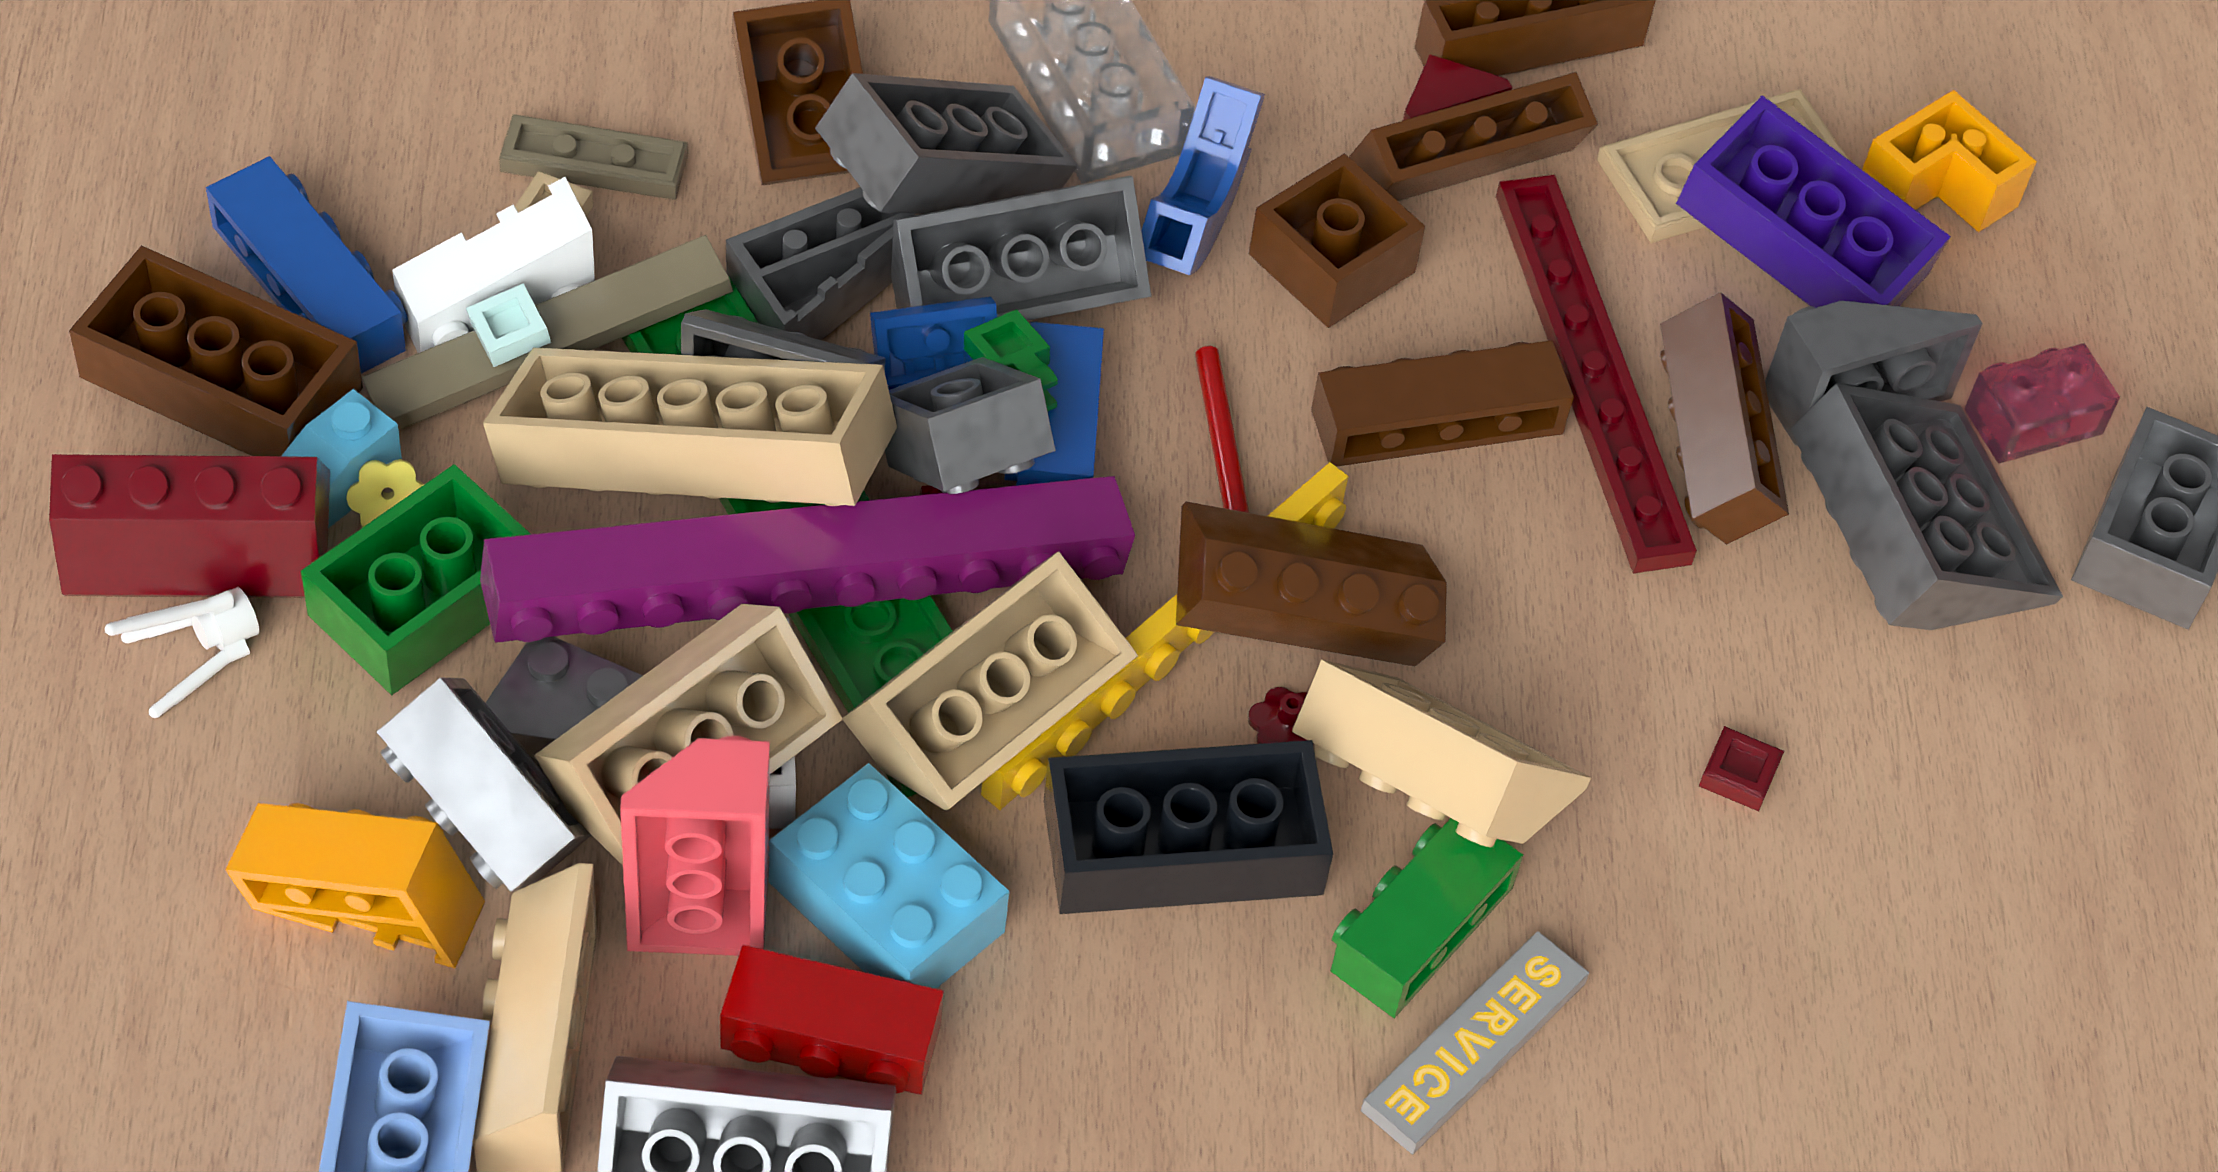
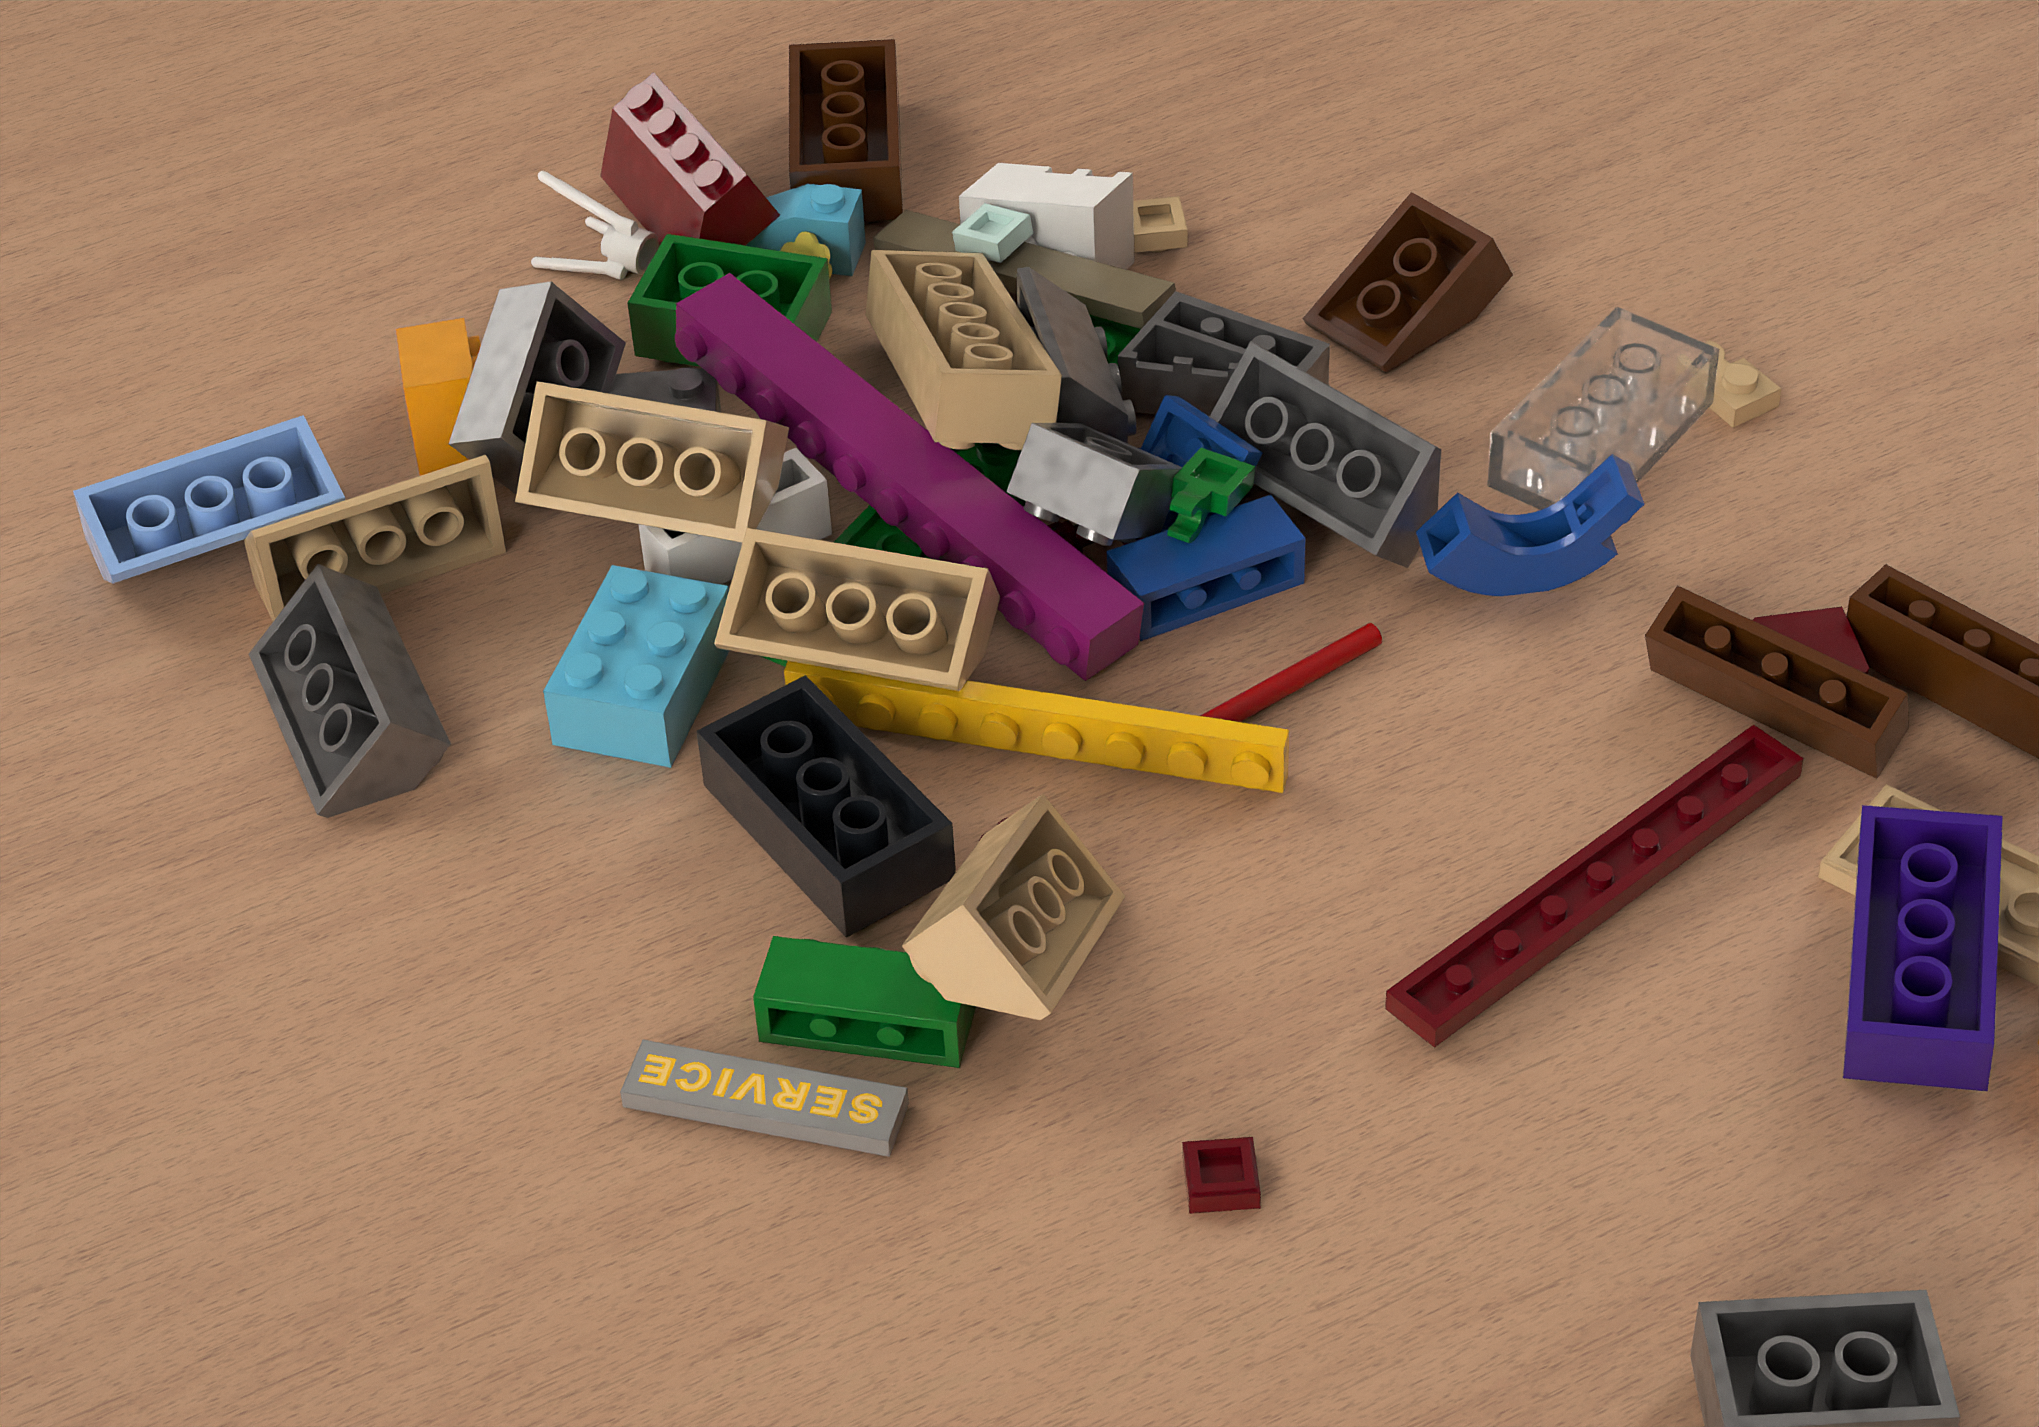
camera: 70 degrees right, 10 degrees down
(304, 261) = (979, 129): blue brick -> none
(594, 156) = (1239, 227): dark tan tile -> none
(699, 850) = (543, 504): coral slope -> none
(830, 1020) = (493, 692): red brick -> none
(940, 143) = (1385, 347): flat silver brick -> none
(1308, 586) = (1137, 764): reddish brown slope -> none
(1336, 240) = (1559, 641): reddish brown brick -> none
(1441, 403) = (1450, 791): reddish brown brick -> none
(1722, 419) = (1611, 984): reddish brown brick -> none
(1868, 348) = (1771, 1056): flat silver slope -> none
(1921, 509) = (1661, 1192): flat silver slope -> none
(2041, 402) = (1881, 1225): clear pink brick -> none

